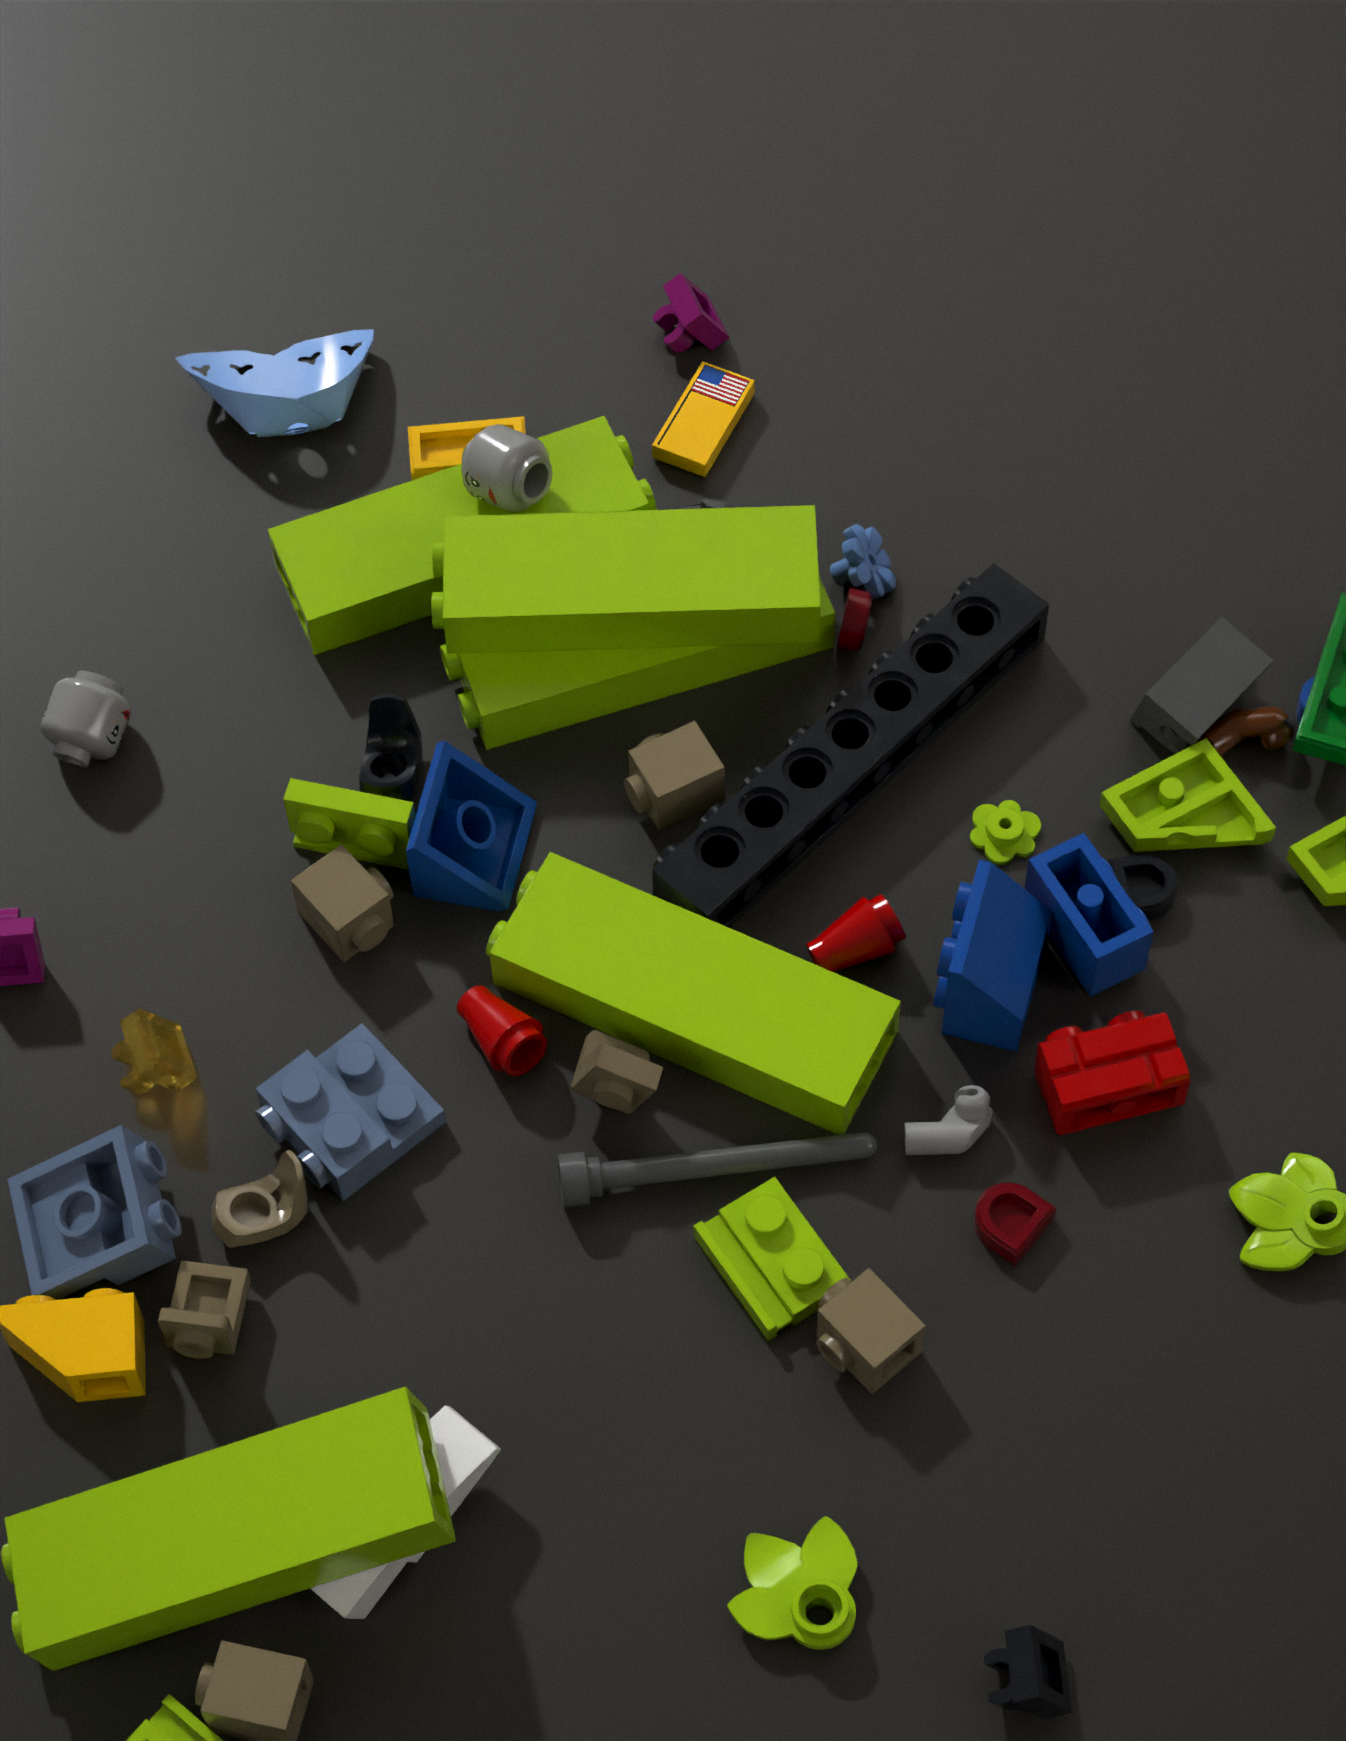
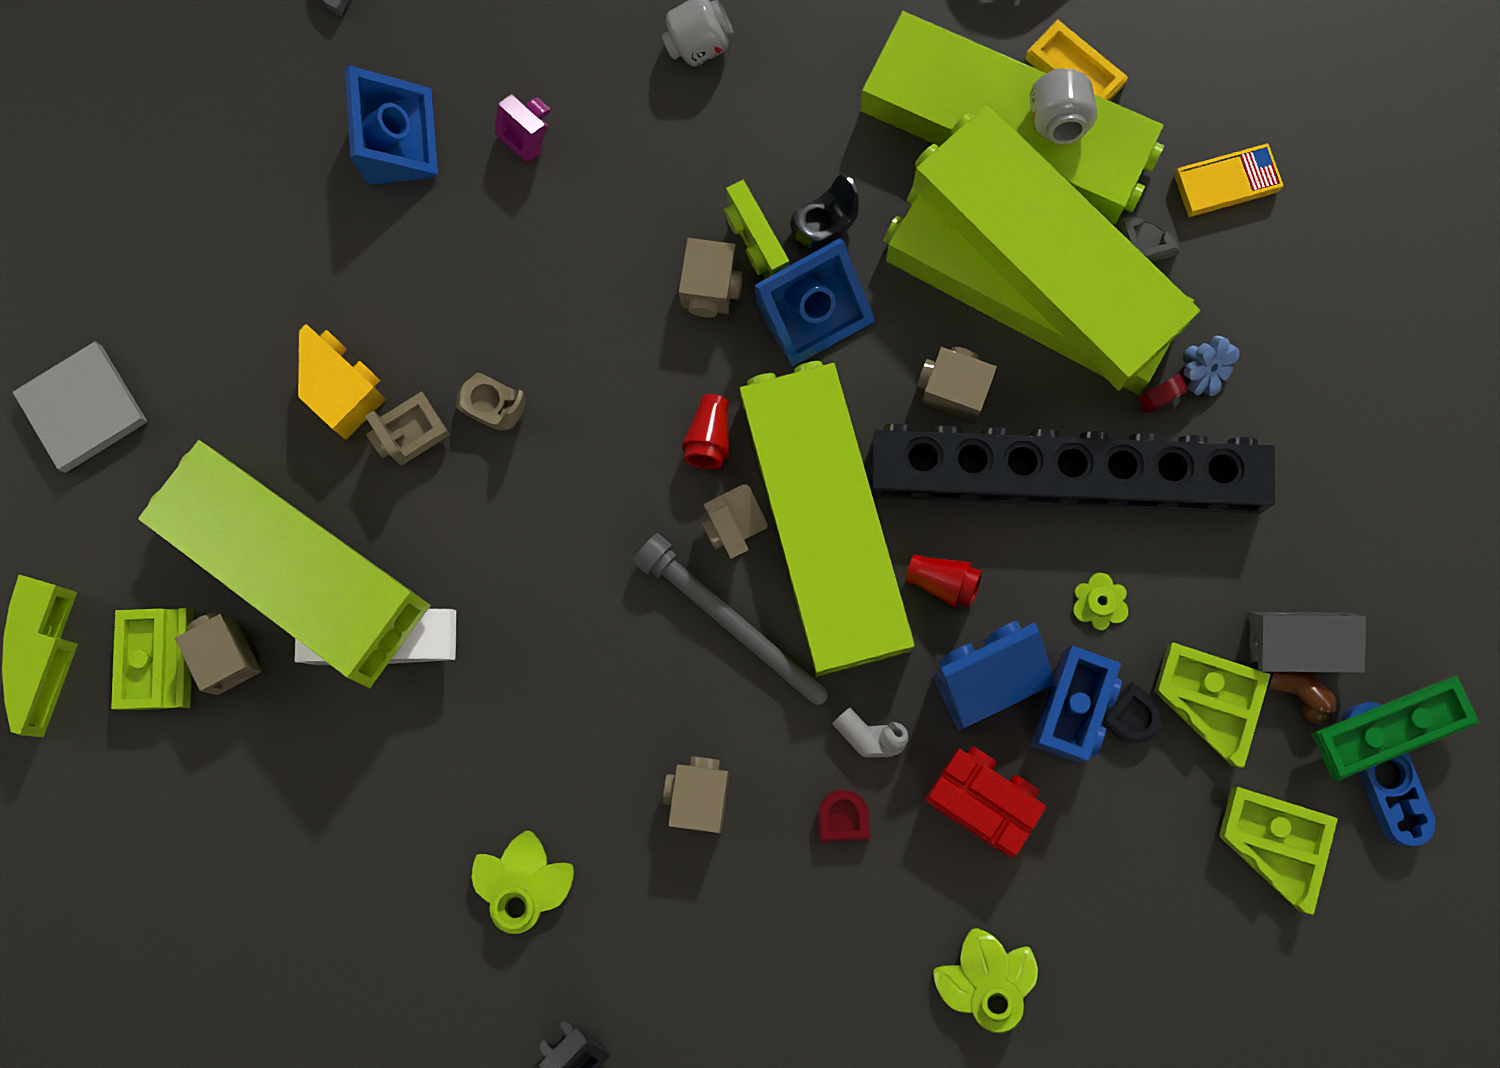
camera: 55 degrees right, 20 degrees up
(94, 1214) = (409, 321): sand blue plate -> none
(156, 1051) = (531, 262): clear yellow tile -> none
(347, 1111) = (588, 394): sand blue plate -> none
(694, 315) = (1297, 109): magenta tile -> none
(769, 1257) = (702, 702): lime plate -> none

